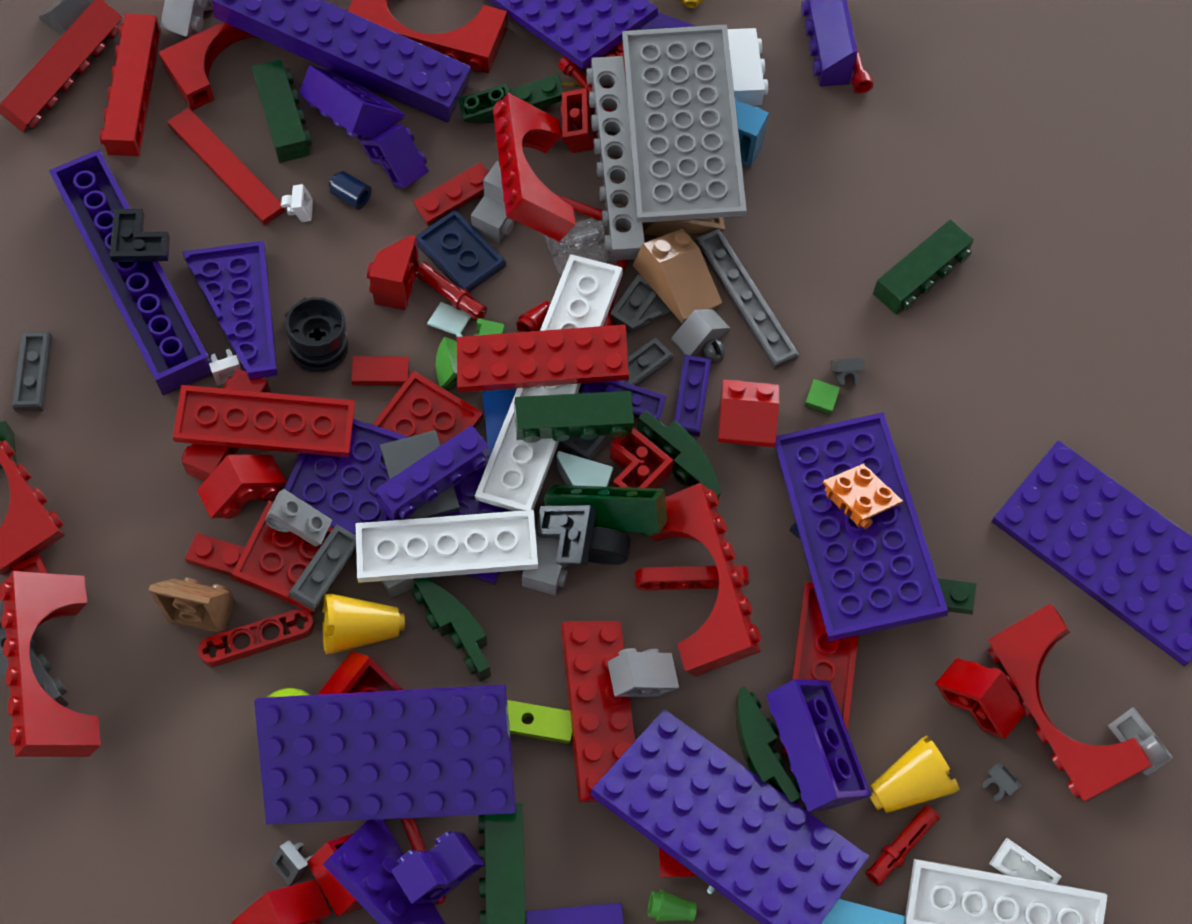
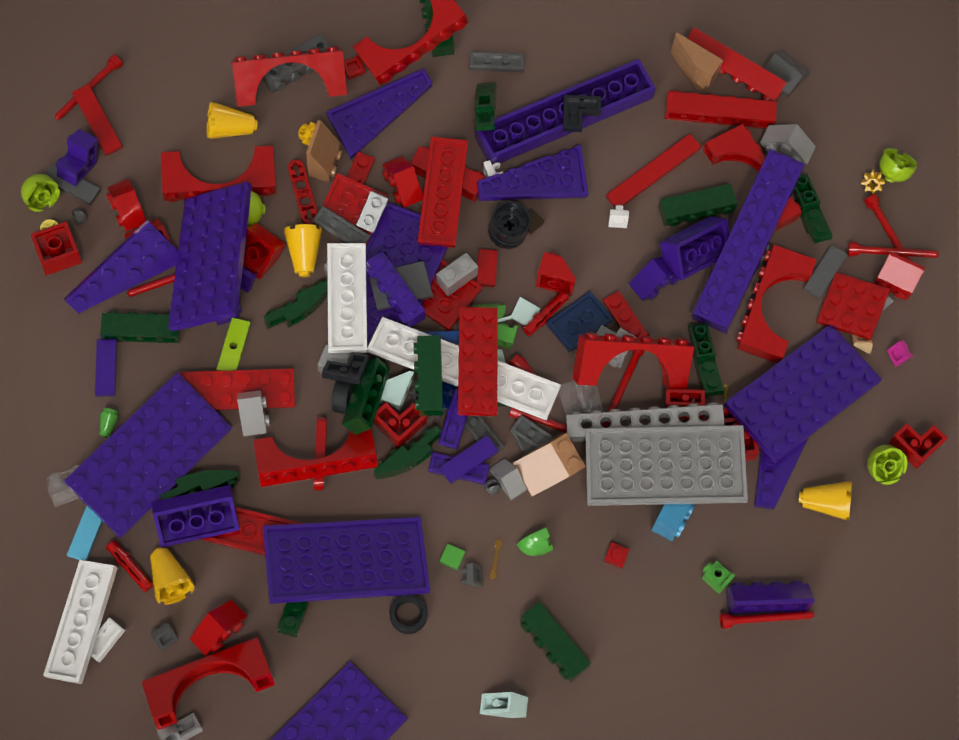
camera: 90 degrees right, 5 degrees up
(56, 106) = (696, 62): none -> medium nougat slope
(114, 366) = (485, 106): none -> dark green slope
(114, 539) = (370, 114): none -> dark purple wing
(126, 764) = (228, 122): none -> yellow cone
(152, 631) = (305, 132): none -> yellow gear
(239, 834) = (181, 185): none -> red arch
(289, 862) = (159, 211): dark grey tile -> none
(350, 189) = (629, 249): dark blue brick -> none
(401, 397) = (457, 274): none -> light grey brick
(436, 872) = (141, 284): dark purple brick -> none
(682, 377) = (468, 459): none -> dark purple tile
(747, 66) = (738, 531): white brick -> none
(747, 299) = (534, 514): flat silver tile -> none
(748, 413) = (435, 499): red slope -> none
(788, 294) = (536, 543): none -> bright green brick
(791, 202) = (616, 555): none -> red plate
(808, 88) = (717, 583): none -> bright green brick
(840, 345) = (498, 544): none -> clear yellow hinge
(860, 494) = (363, 560): orange hinge -> none
(925, 430) = (408, 599): none -> black tyre
(1018, 323) = (504, 705): none -> light aqua slope

